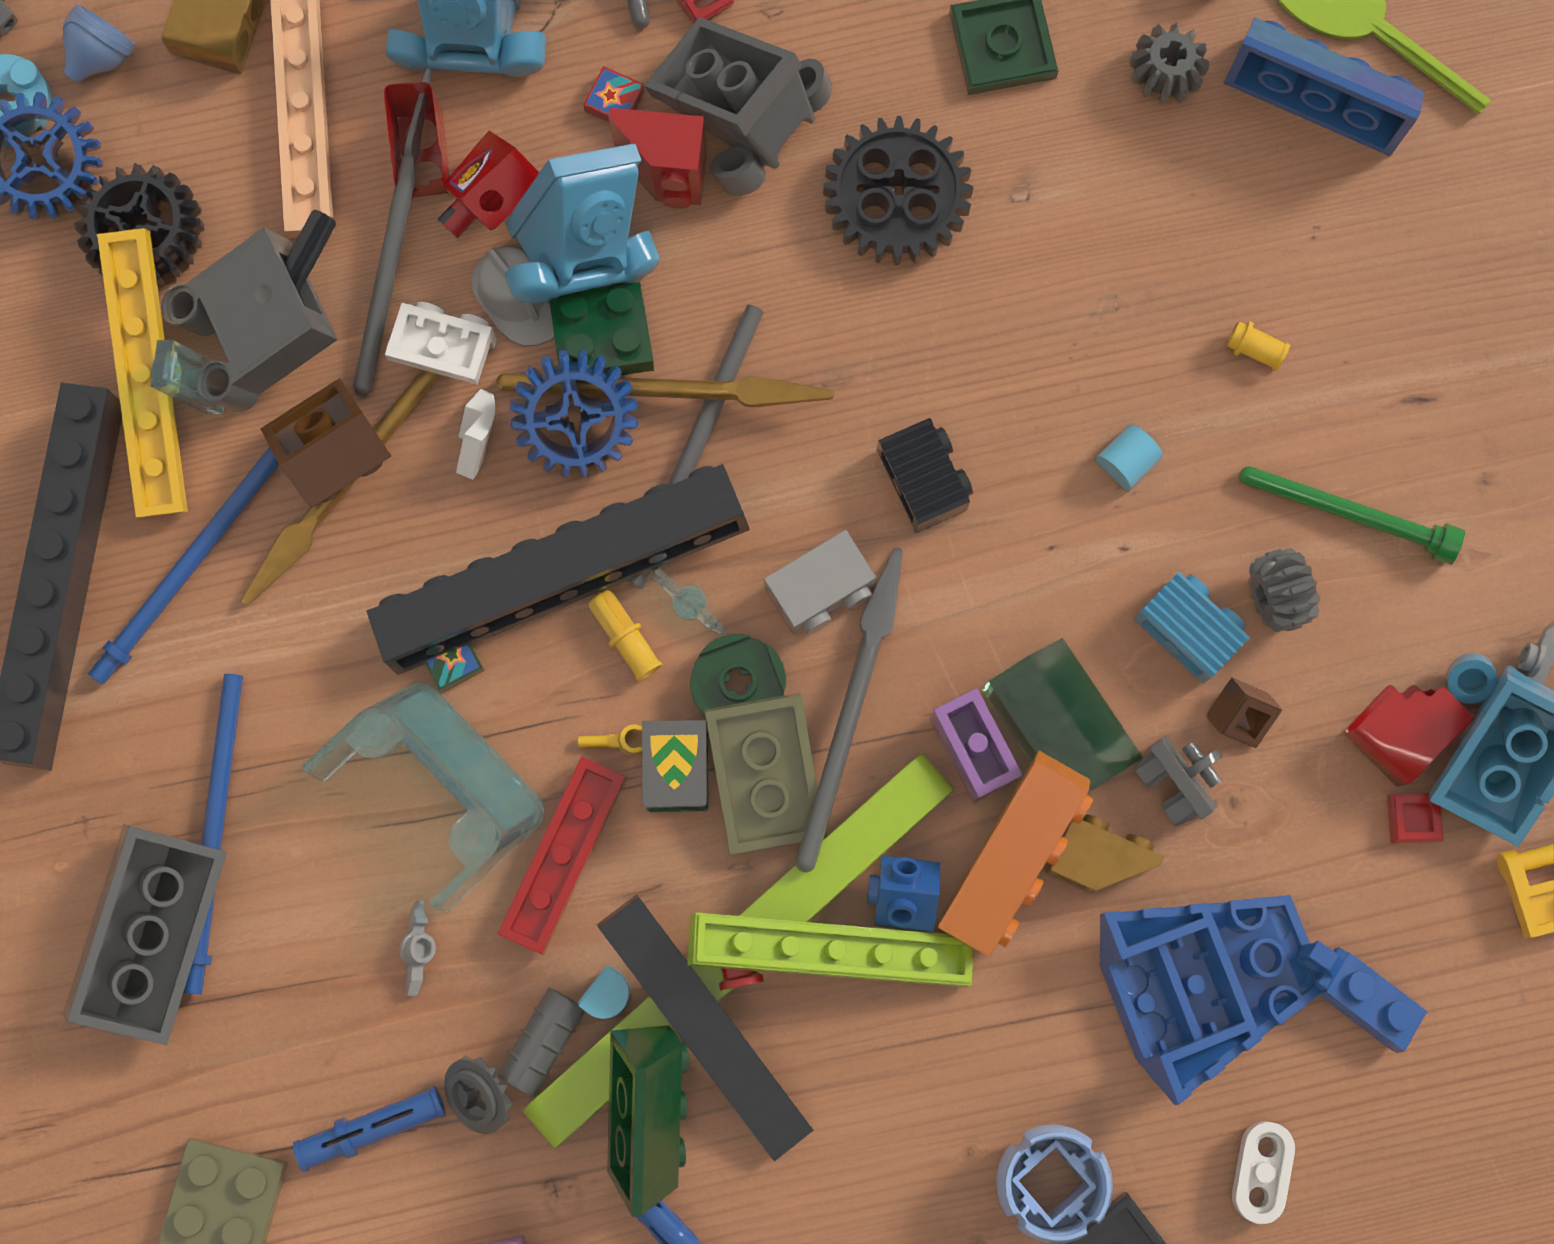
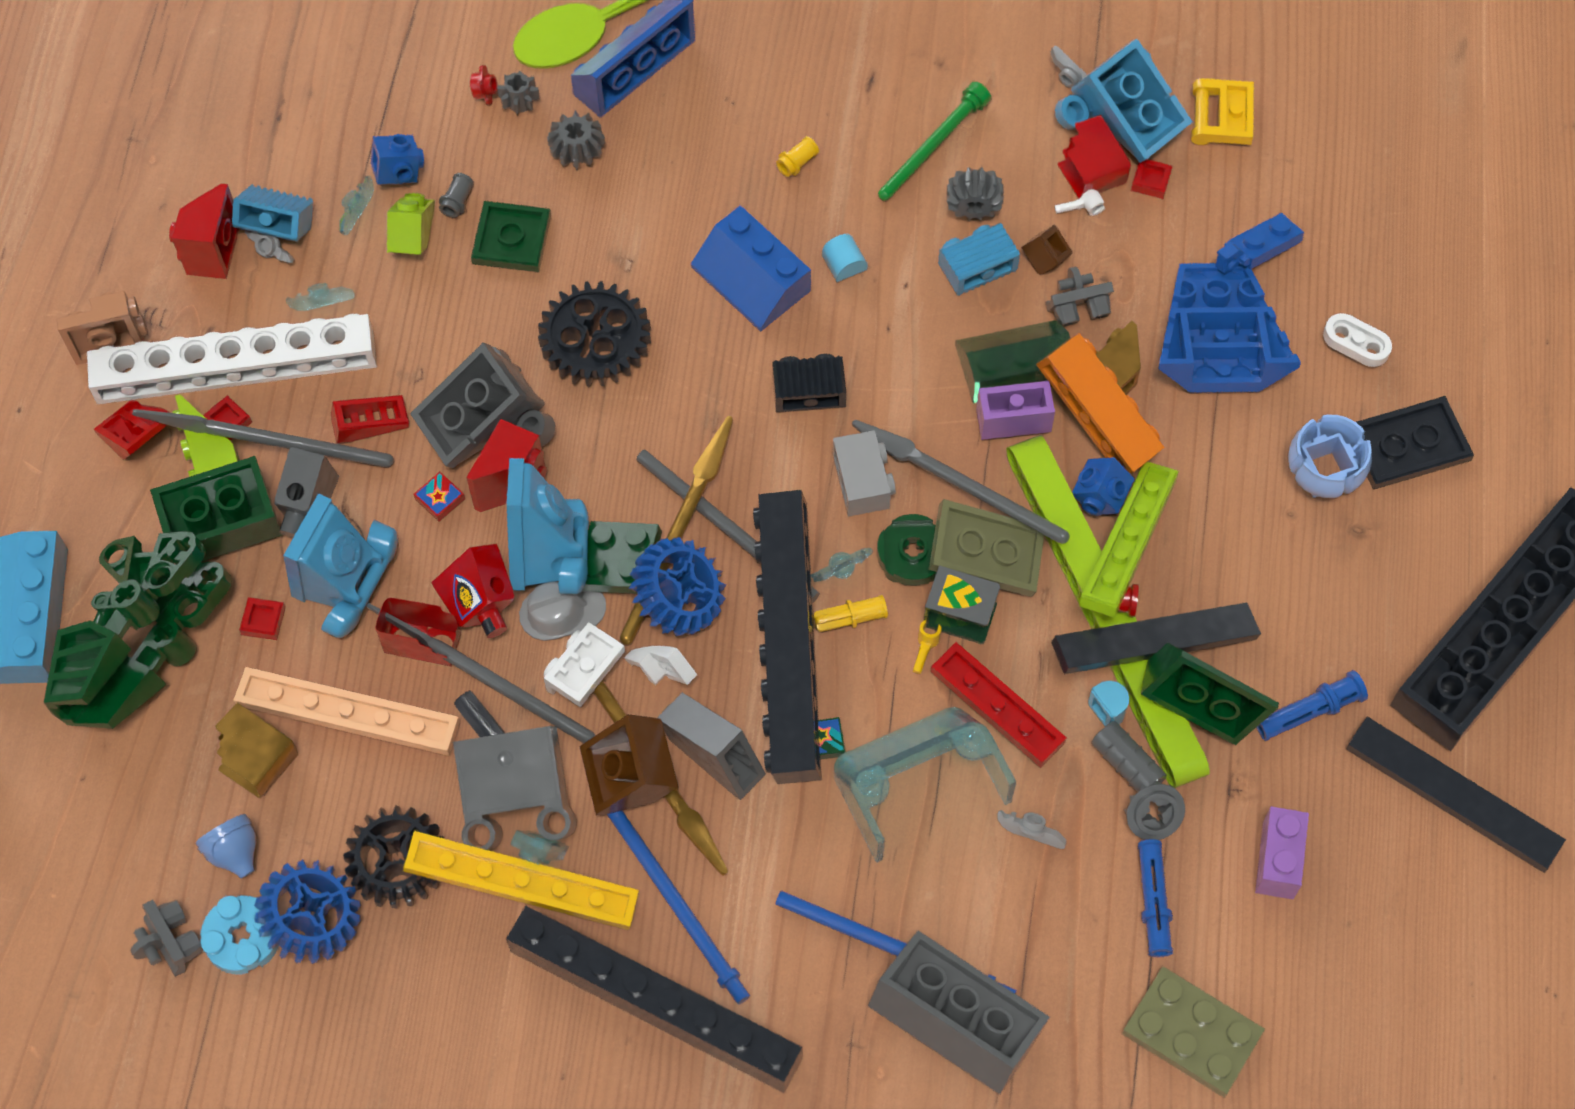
camera: 70 degrees left, 15 degrees down
(388, 527) = (712, 744): none -> dark grey slope
(1062, 346) = (752, 268): none -> blue slope
(1343, 747) = (1090, 200): none -> white hand

